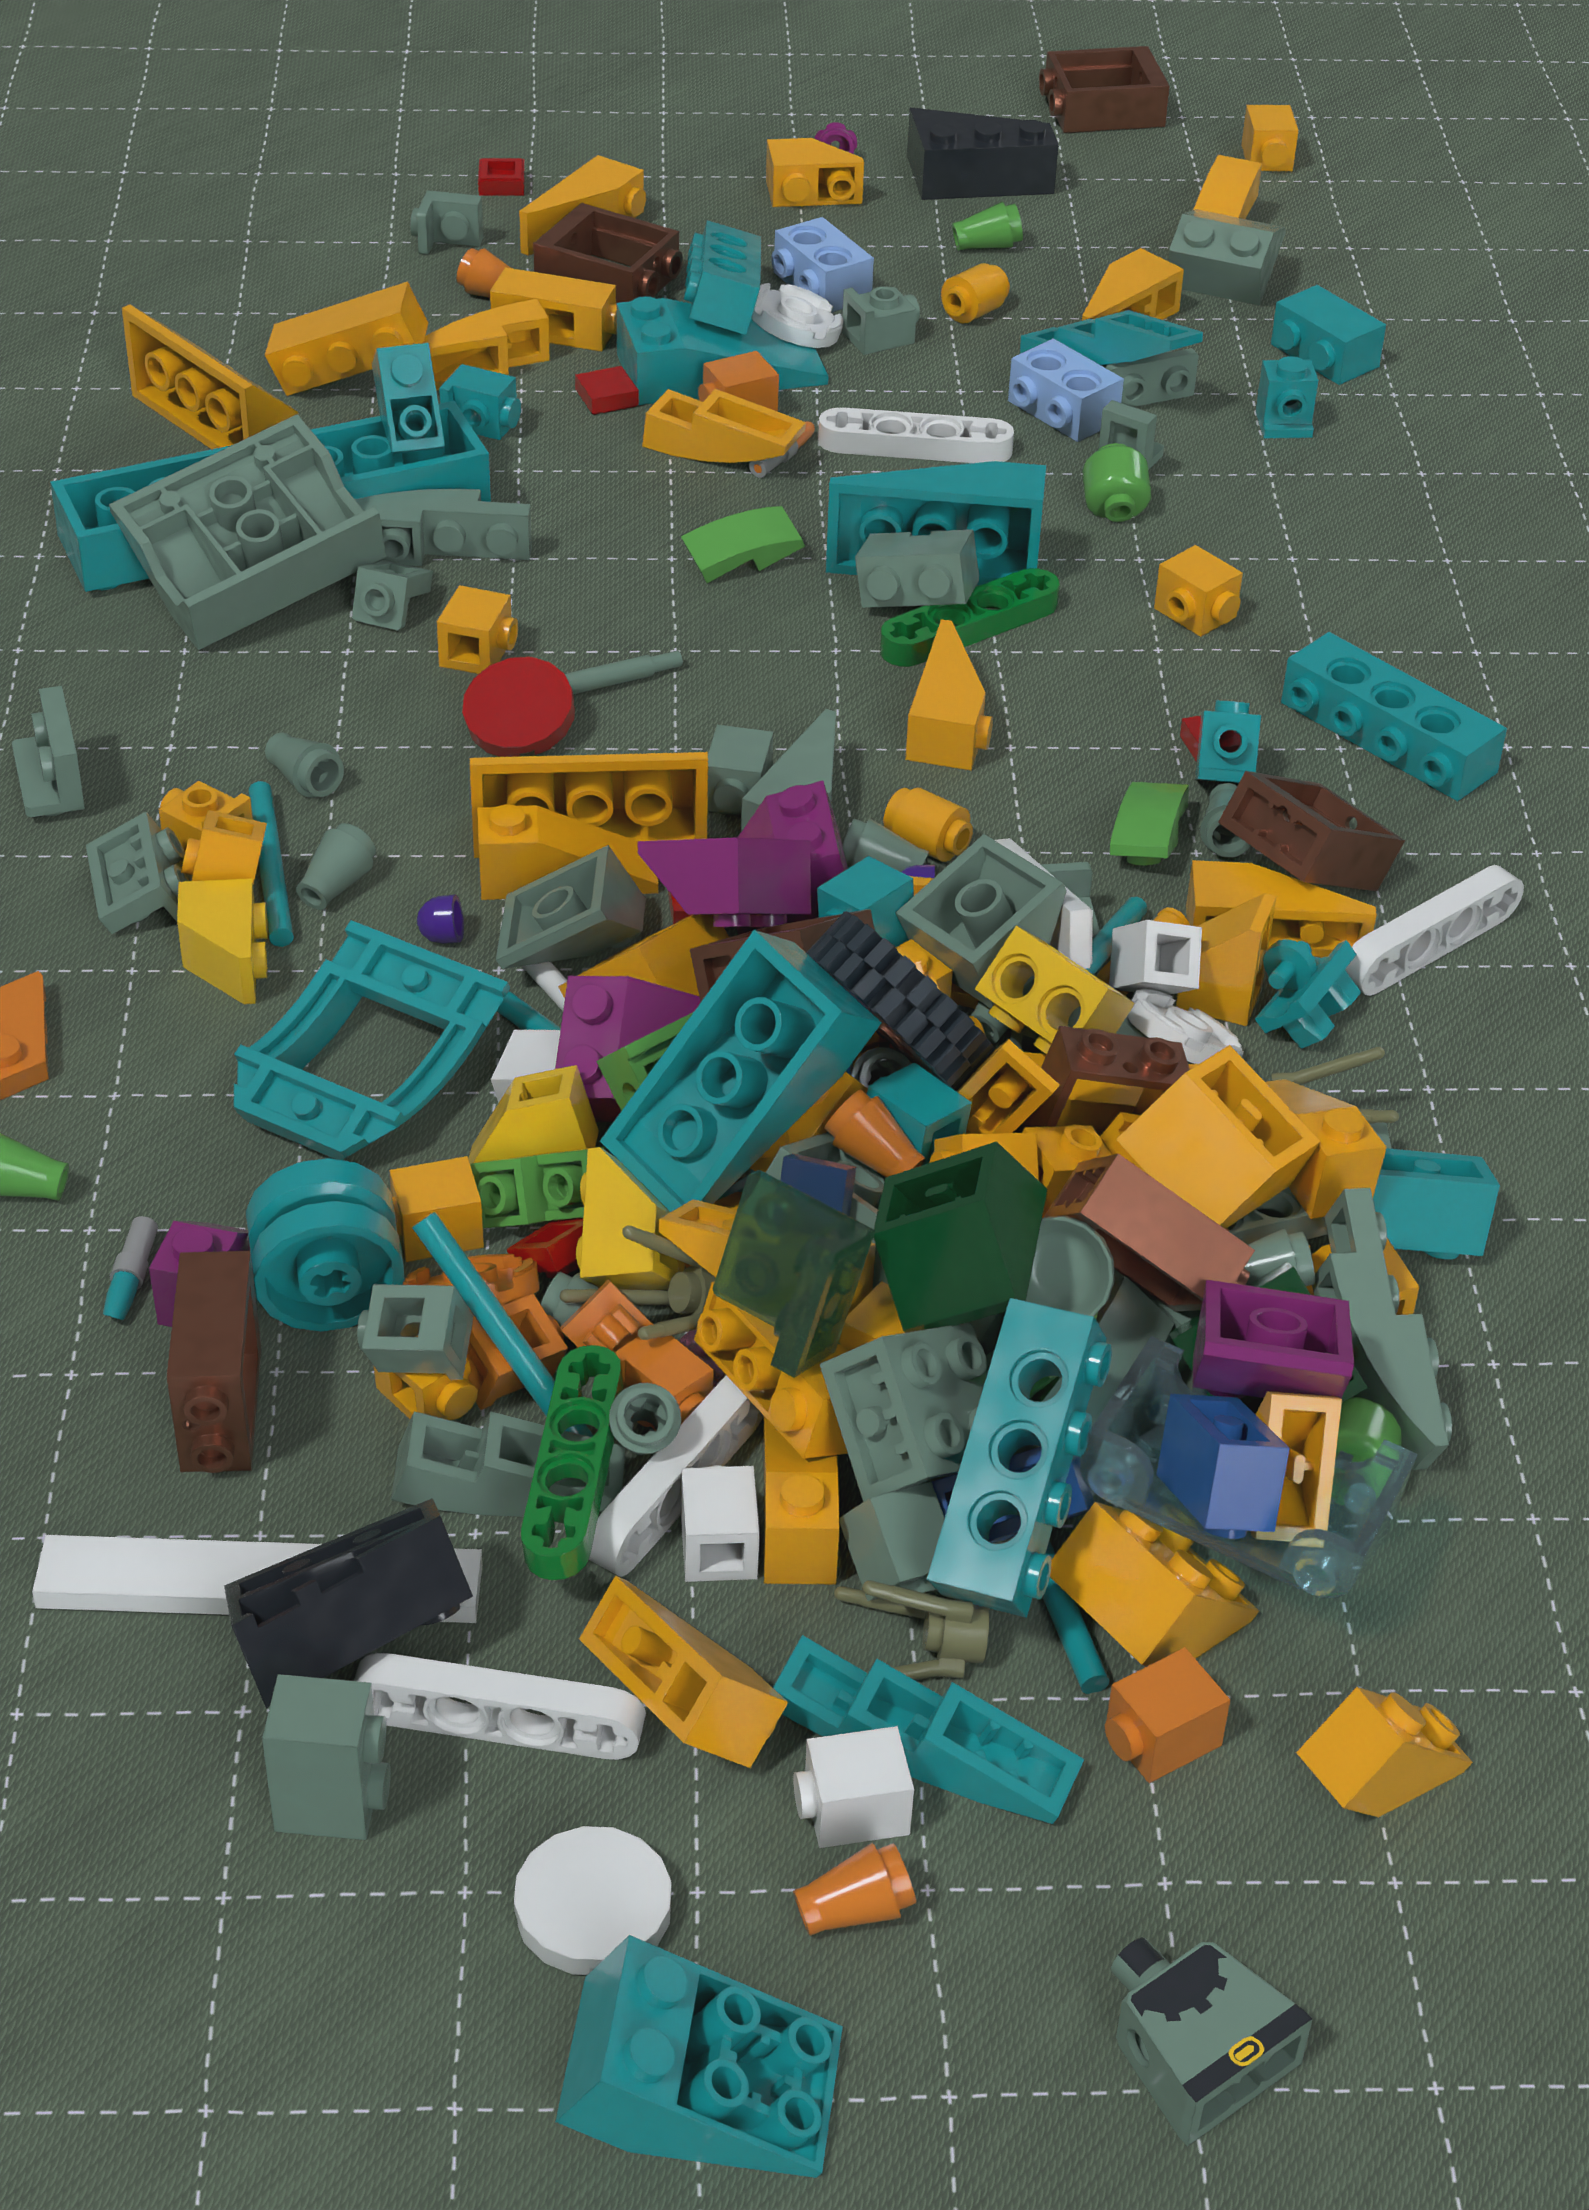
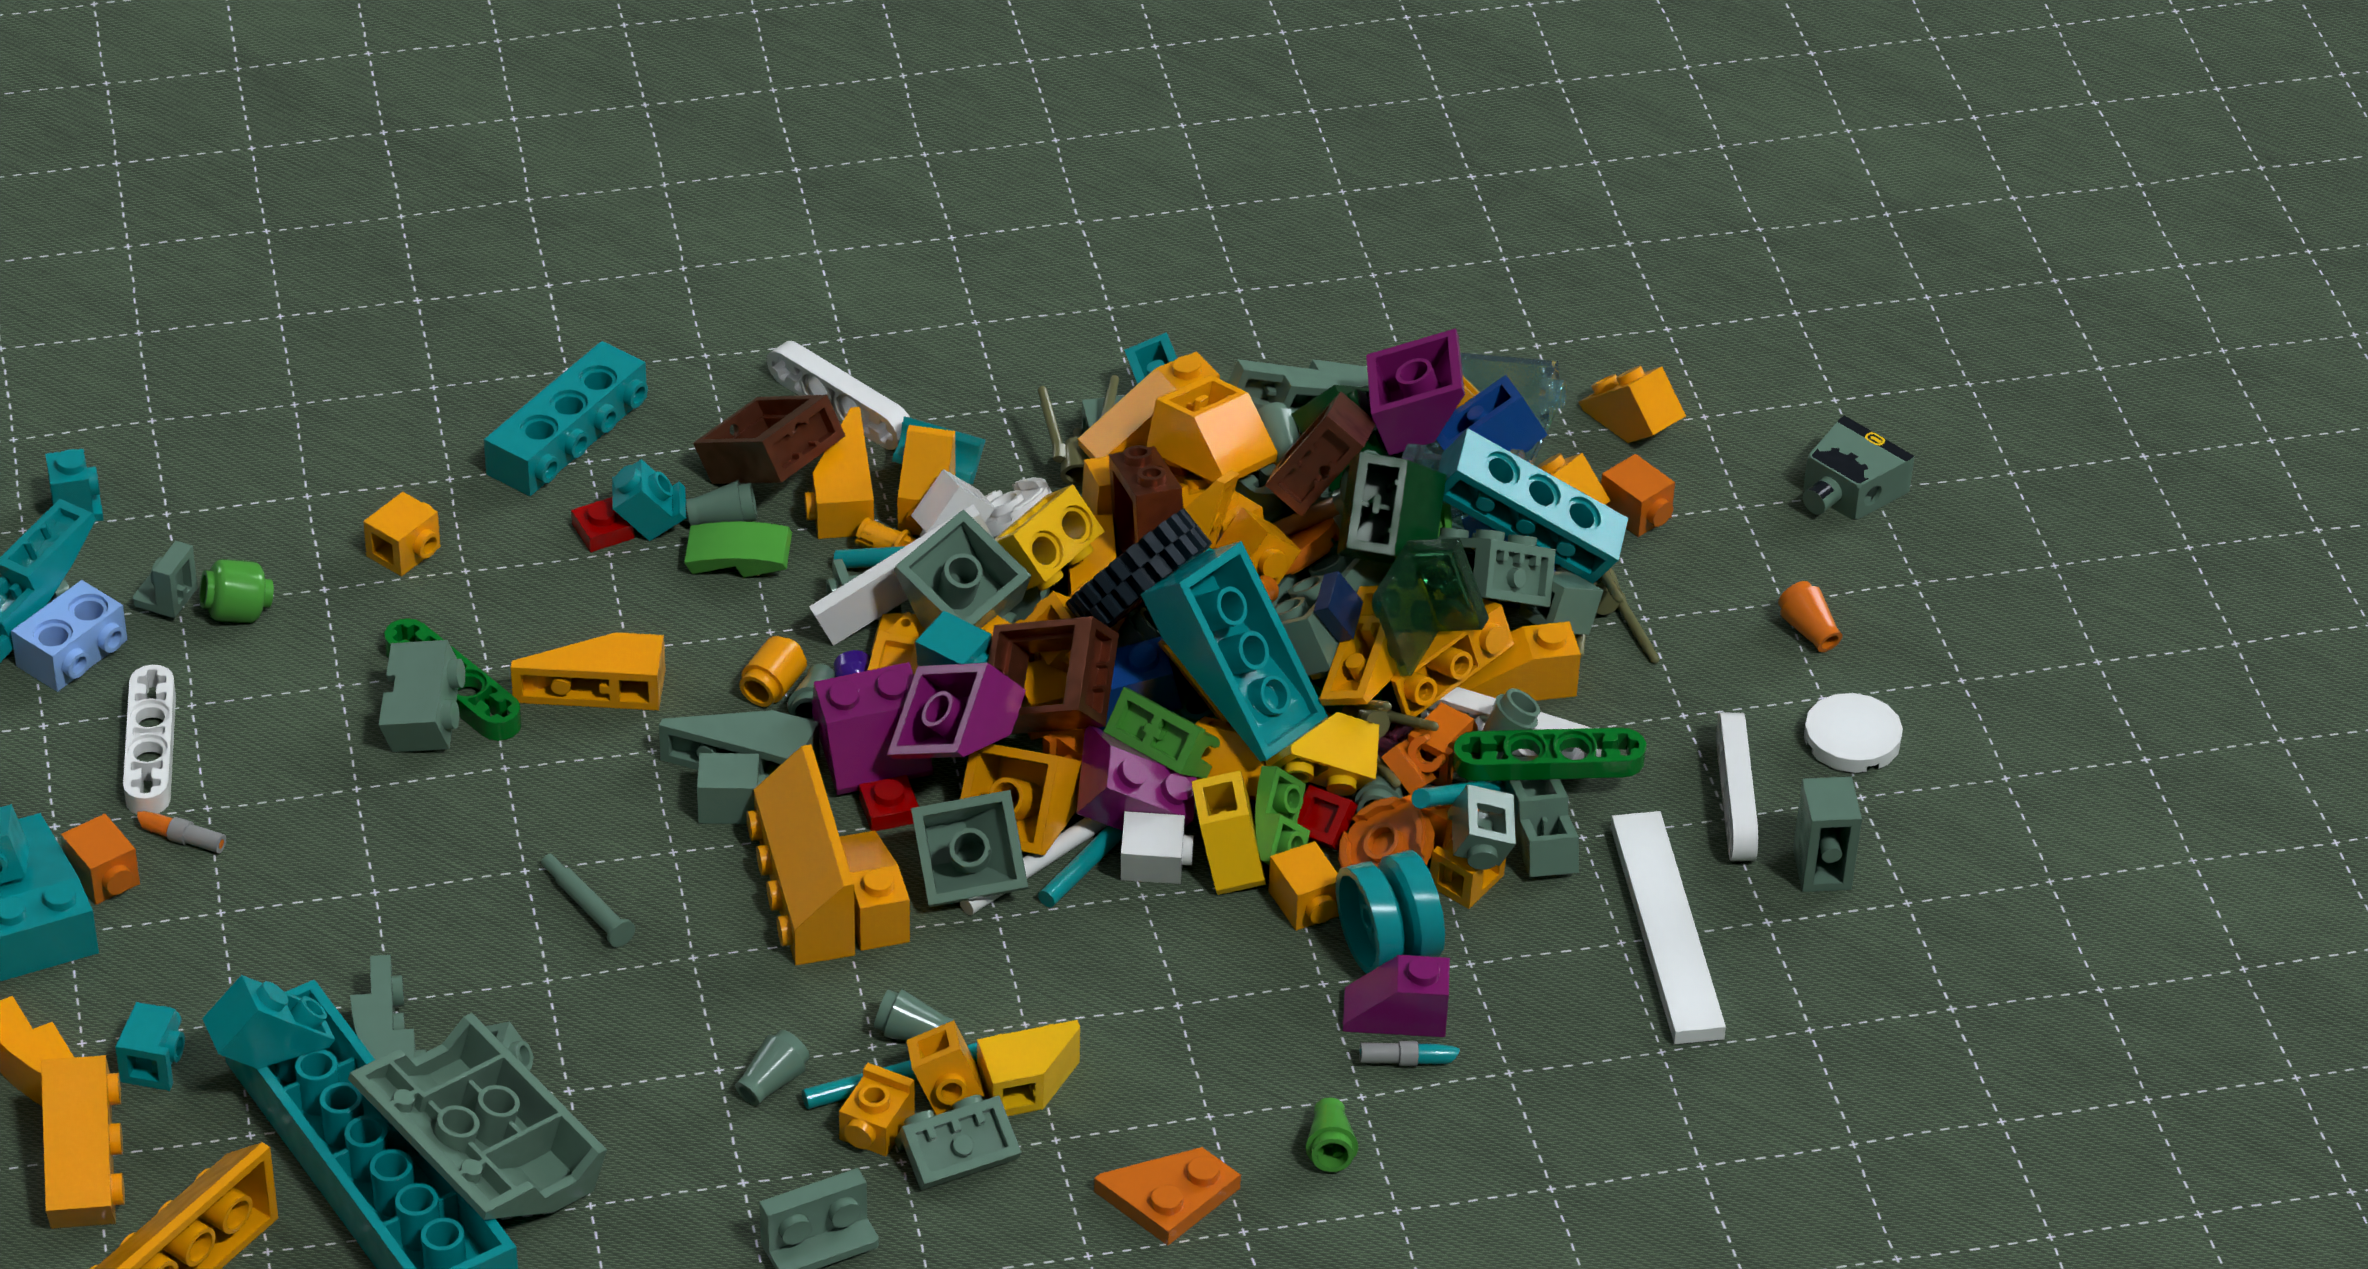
camera: 100 degrees left, 0 degrees up
(214, 1361) = (1521, 979): copper window -> none
(346, 1597) = (1713, 845): black wedge -> none
(390, 971) = (1094, 895): teal wedge -> none
(442, 919) = (961, 943): dark purple hinge -> none
(475, 629) = (551, 984): light orange brick -> none
(518, 707) = (666, 936): red tile -> none
(607, 390) = (89, 968): red tile -> none
(683, 1675) = (1692, 697): light orange slope -> none
(698, 2066) = (1954, 669): teal slope -> none
(718, 428) = (180, 863): light orange slope -> none
(719, 1523) = (1559, 693): white brick -> none
(731, 541) = (373, 827): bright green slope -> none
(855, 1787) = (1739, 619): white brick -> none
(946, 1739) = (1681, 602): teal slope -> none
(989, 497) = (353, 663): teal slope -> none

